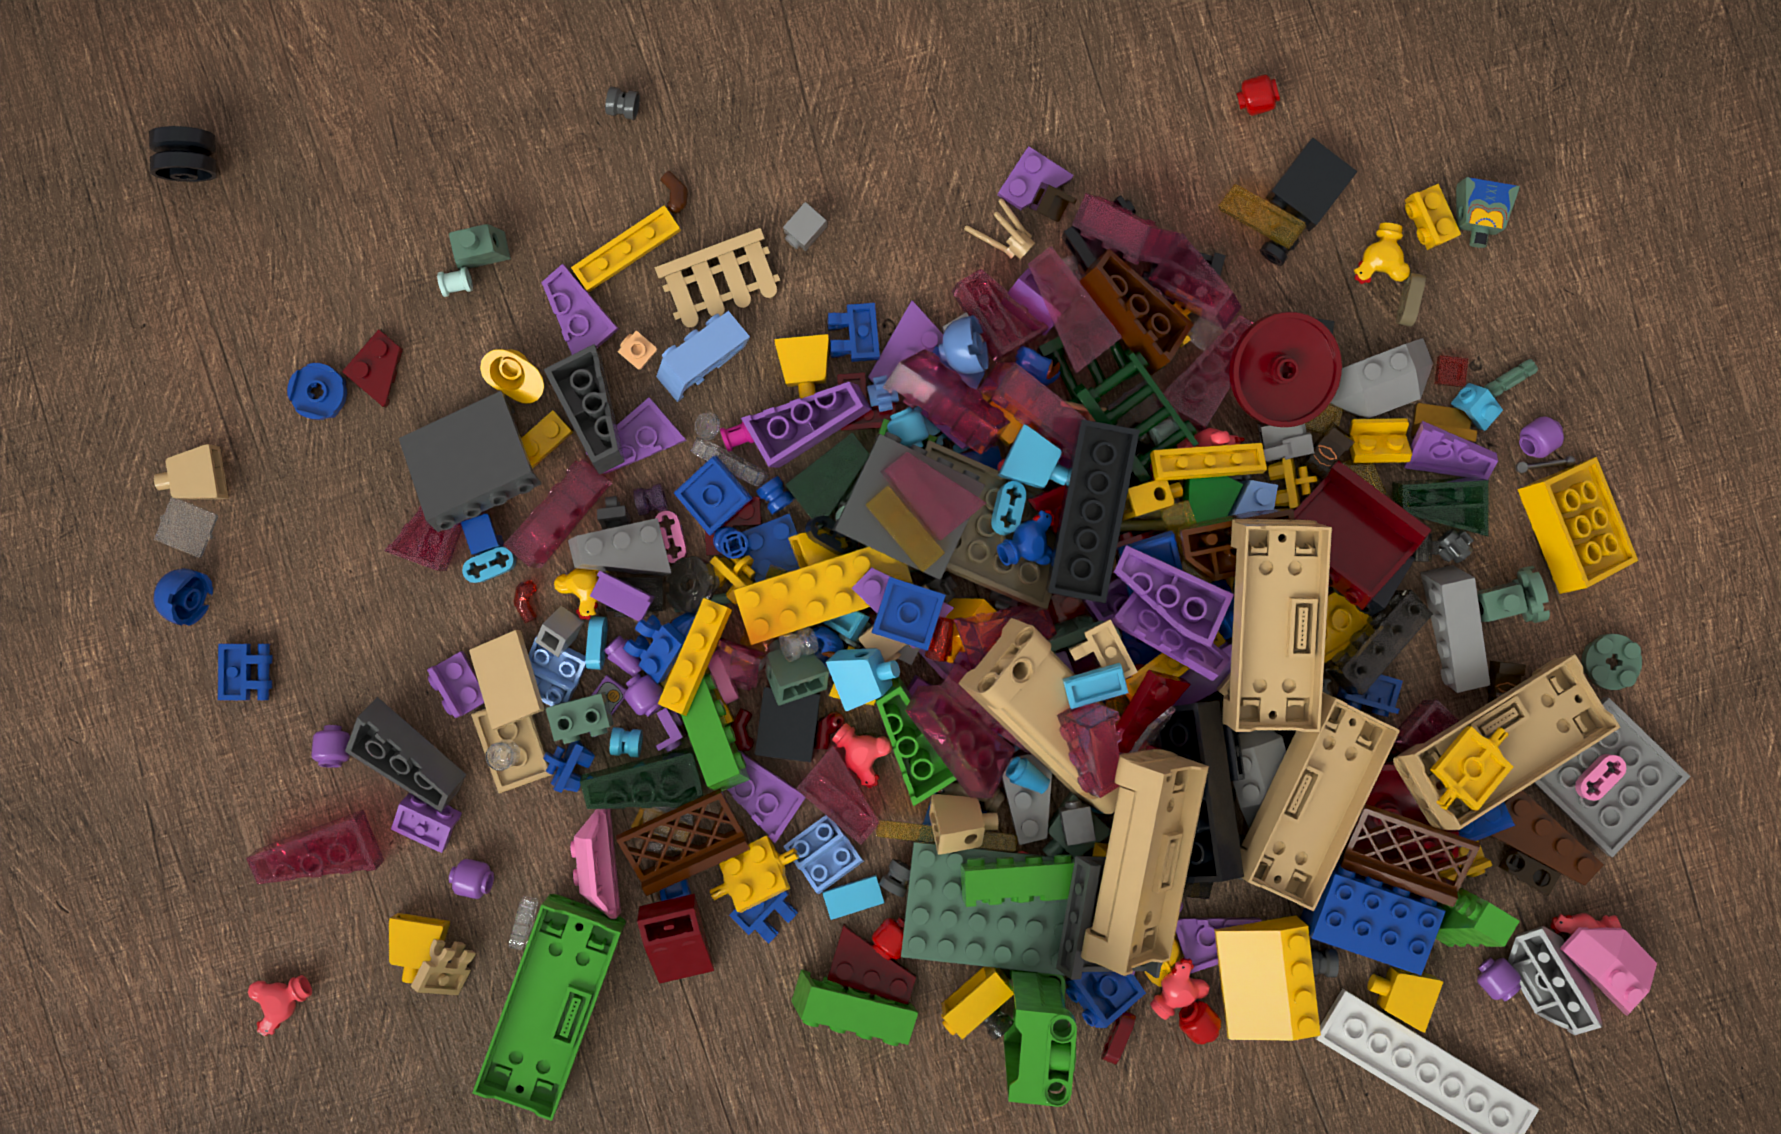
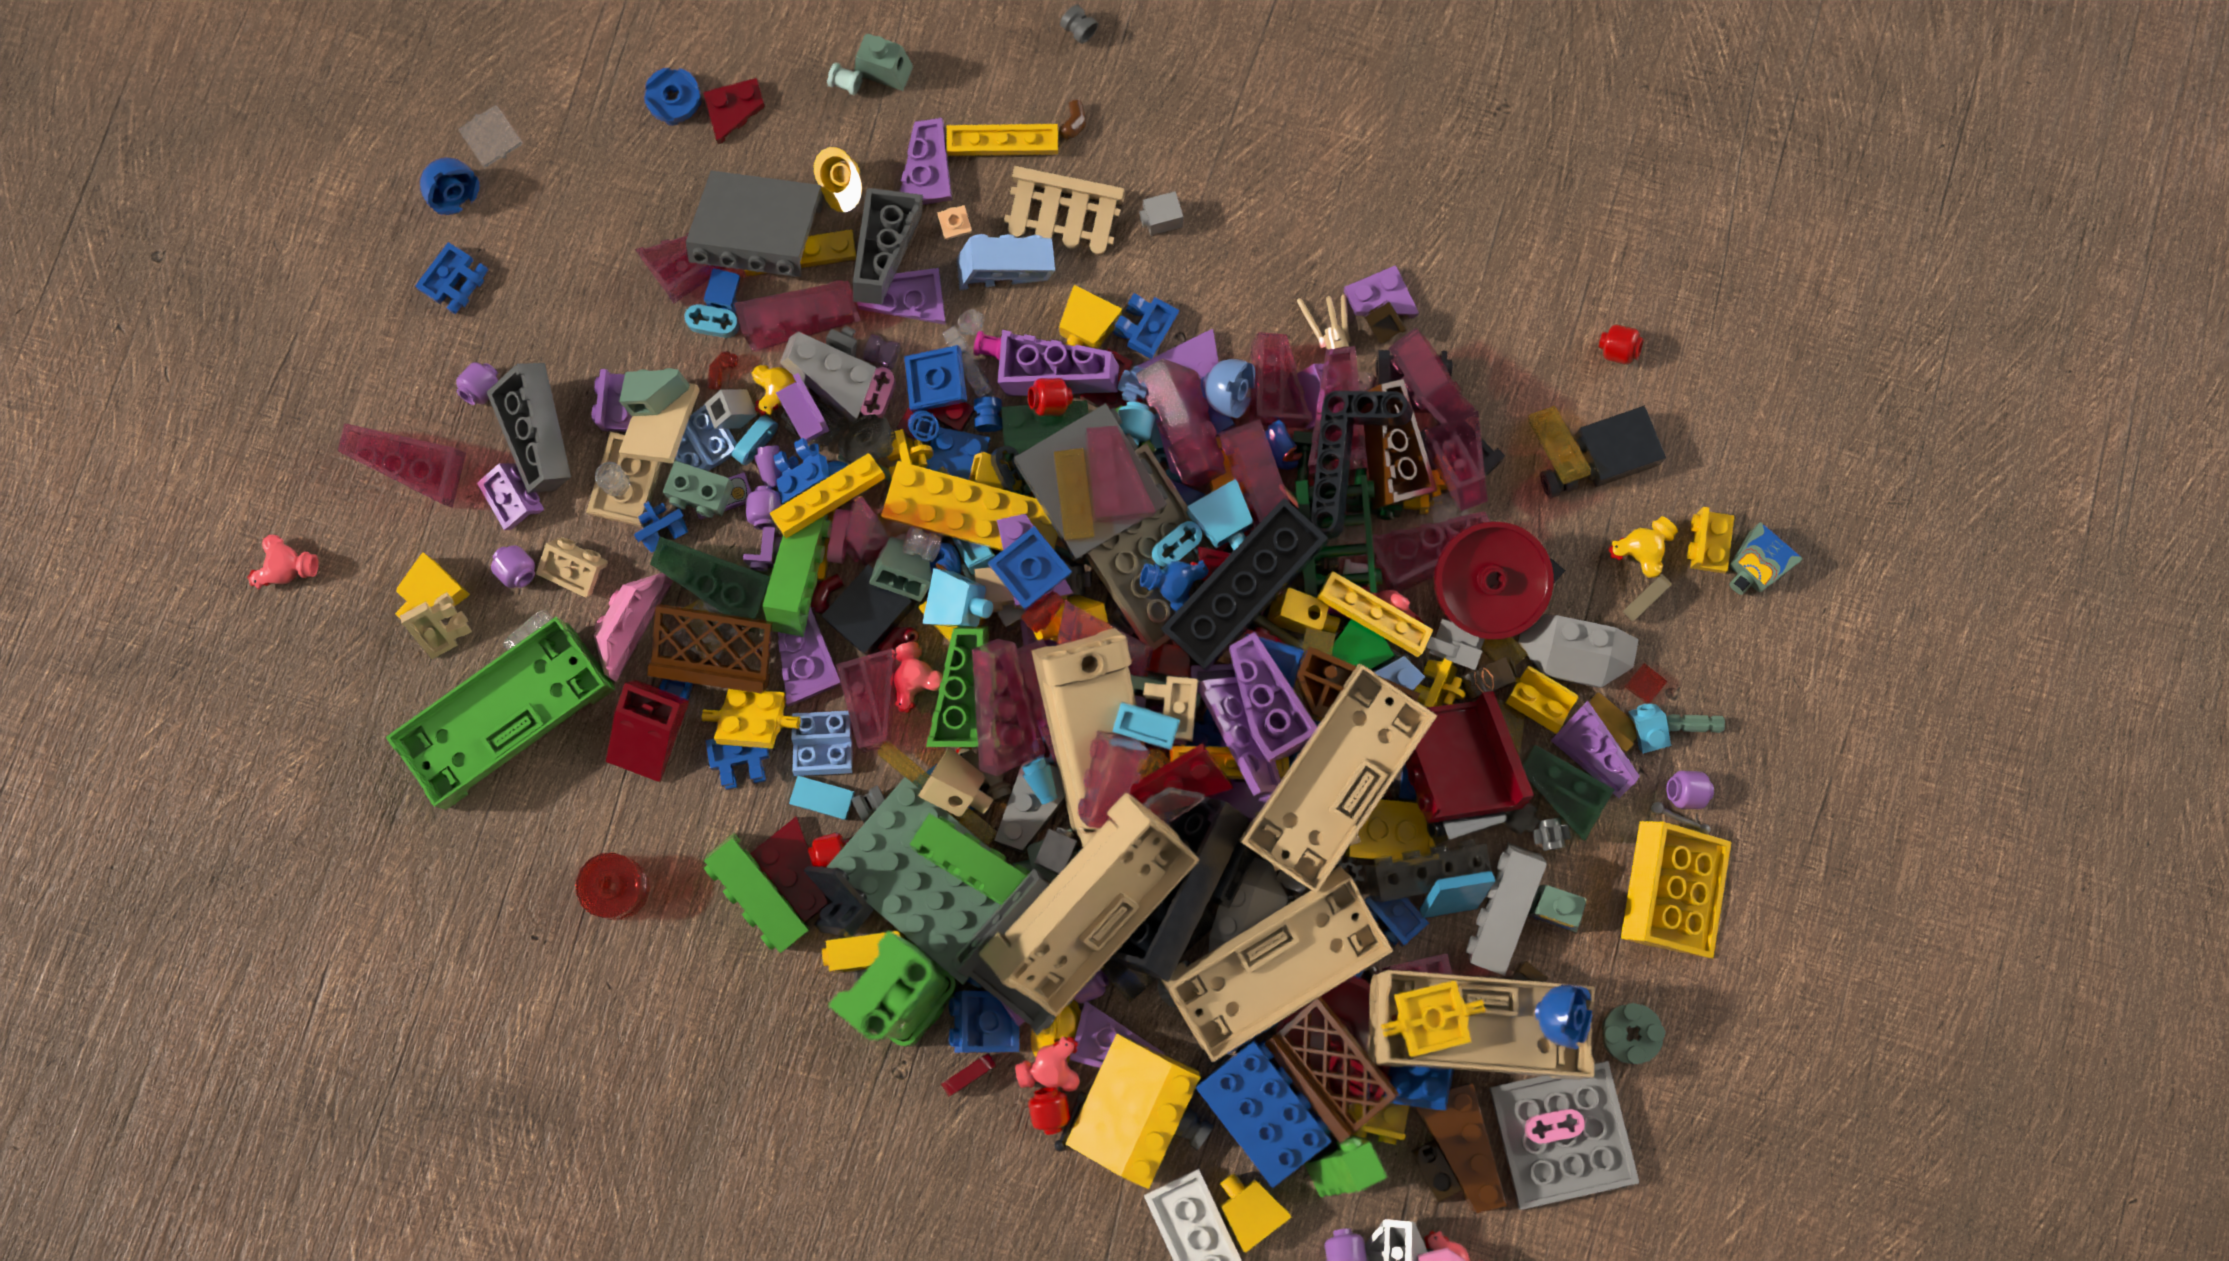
camera: 40 degrees right, 10 degrees down
(194, 474) = (527, 98): tan torso -> none
(483, 662) = (651, 391): none -> sand green slope
(518, 845) = (571, 566): none -> tan bracket
(626, 742) = (721, 538): medium azure wheel -> none
(751, 1080) = (595, 883): none -> clear red wheel
(822, 452) = (1049, 396): none -> red head
(937, 980) = (848, 904): none -> black bracket
(1100, 345) = (1341, 449): none -> black beam
(1223, 1041) = (1060, 1144): none -> black hinge
(1414, 645) = (1457, 894): none -> dark azure tile
(1534, 593) = (1592, 919): sand green plate -> none
(1569, 695) = (1564, 1015): none -> blue cylinder

